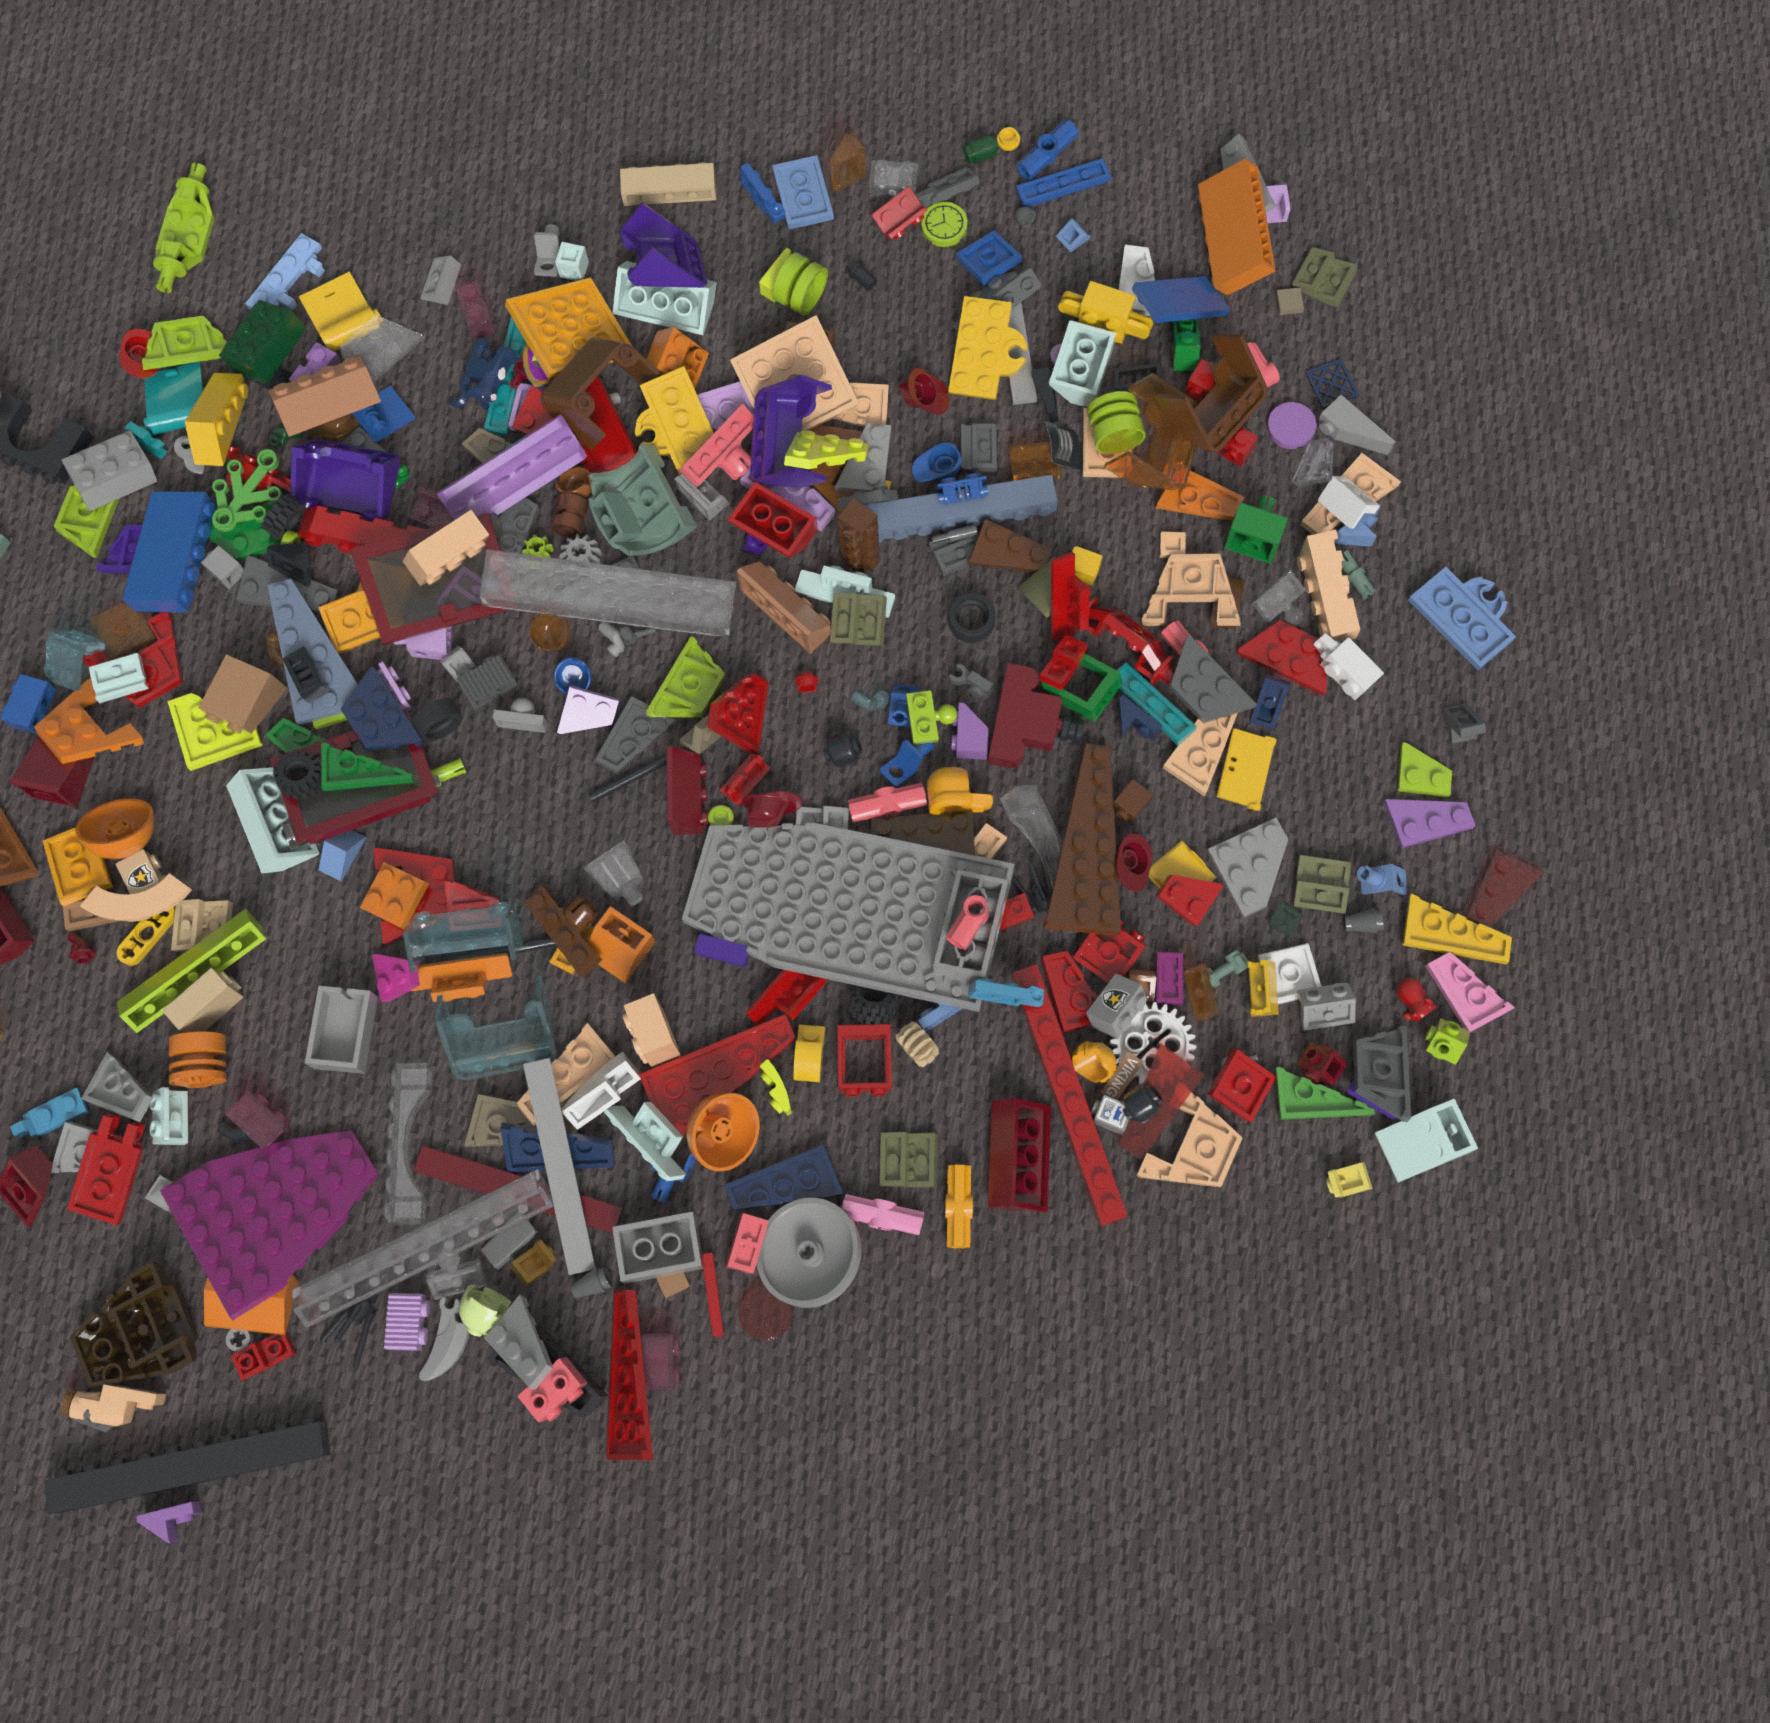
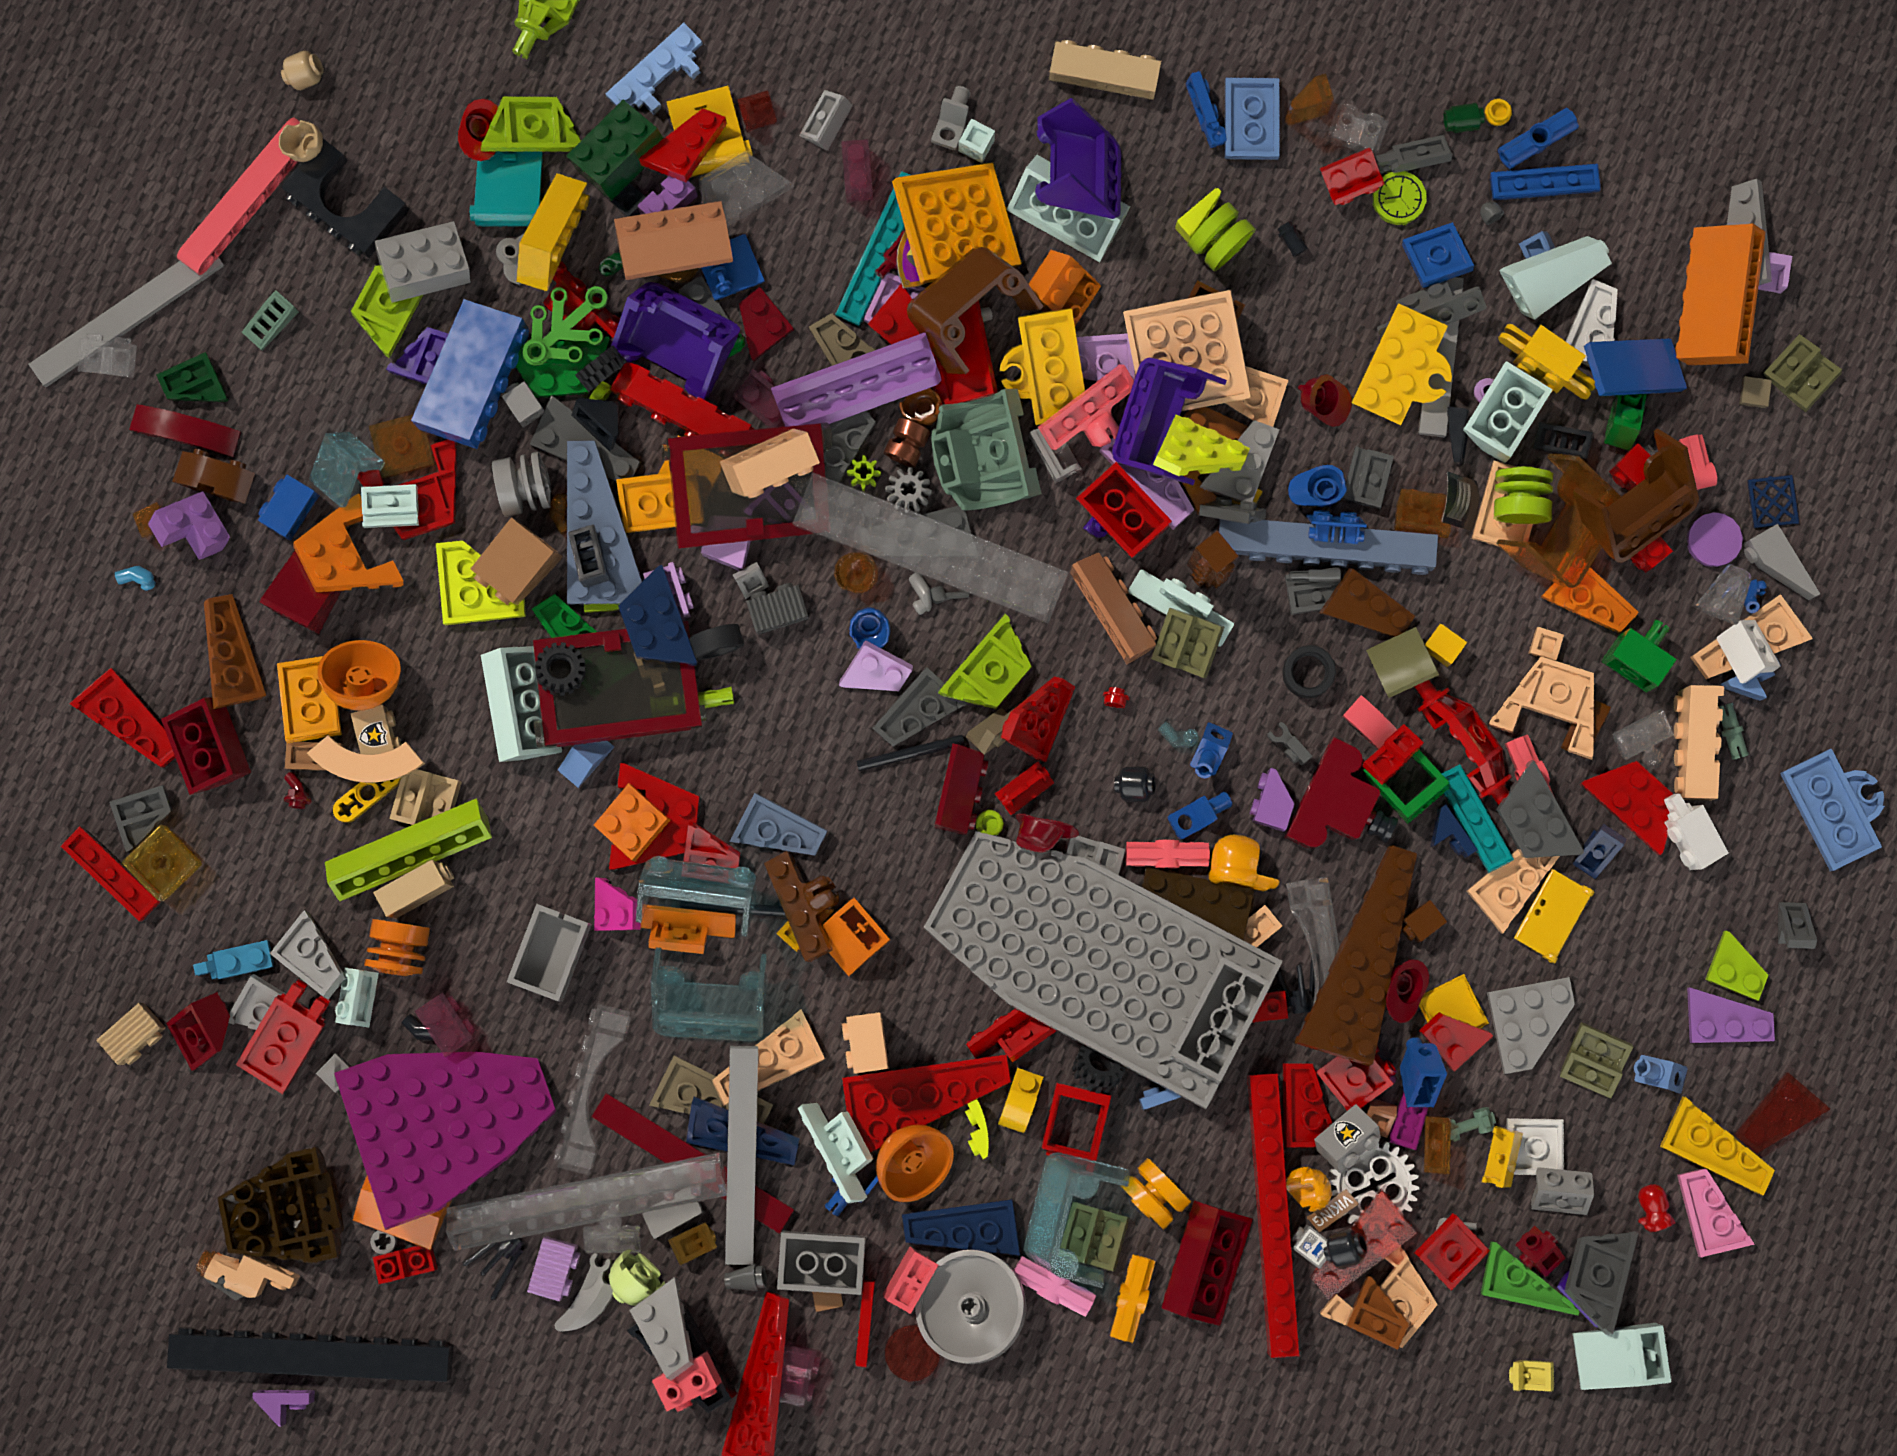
camera: 10 degrees right, 10 degrees up
(145, 440) = (466, 232): teal plate -> none
(236, 629) = (521, 484): none -> light grey wheel
(321, 323) = (686, 146): none -> red wing
(350, 771) = (613, 678): green wing -> none
(378, 285) = (757, 111): none -> clear red panel
(422, 453) = (762, 323): none -> dark red wing
(487, 370) = (851, 245): dark blue animal -> none
(521, 717) = (805, 657): light grey tile -> none
(529, 868) = (778, 828): none -> sand blue wing
(601, 1090) = (801, 1086): white slope -> none
(617, 874) = (868, 859): clear torso -> none
(722, 950) = (957, 971): dark purple slope -> none
(860, 1115) = (1060, 1181): none -> clear light blue windscreen
(917, 1044) = (1133, 1122): tan gear -> none
(924, 718) = (1229, 775): lime plate -> none
(954, 1101) = (1153, 1196): none -> light orange wheel
(968, 924) = (1216, 1023): coral piece -> none
(1005, 993) = (1240, 1101): dark azure hinge -> none
(1034, 644) = (1369, 722): none -> coral slope
(1068, 598) = (1417, 689): red bracket -> none
(1088, 250) = (1554, 274): none -> light aqua slope
(1165, 924) = (1422, 1073): none -> blue torso
(1189, 1161) = (1377, 1316): none -> dark orange wing
(1285, 920) = (1547, 1088): clear green tile -> none
(1339, 455) = (1755, 588): none -> blue arm
(1365, 921) = (1630, 1113): dark grey cone -> none
(1447, 1040) = (1674, 1261): lime brick -> none

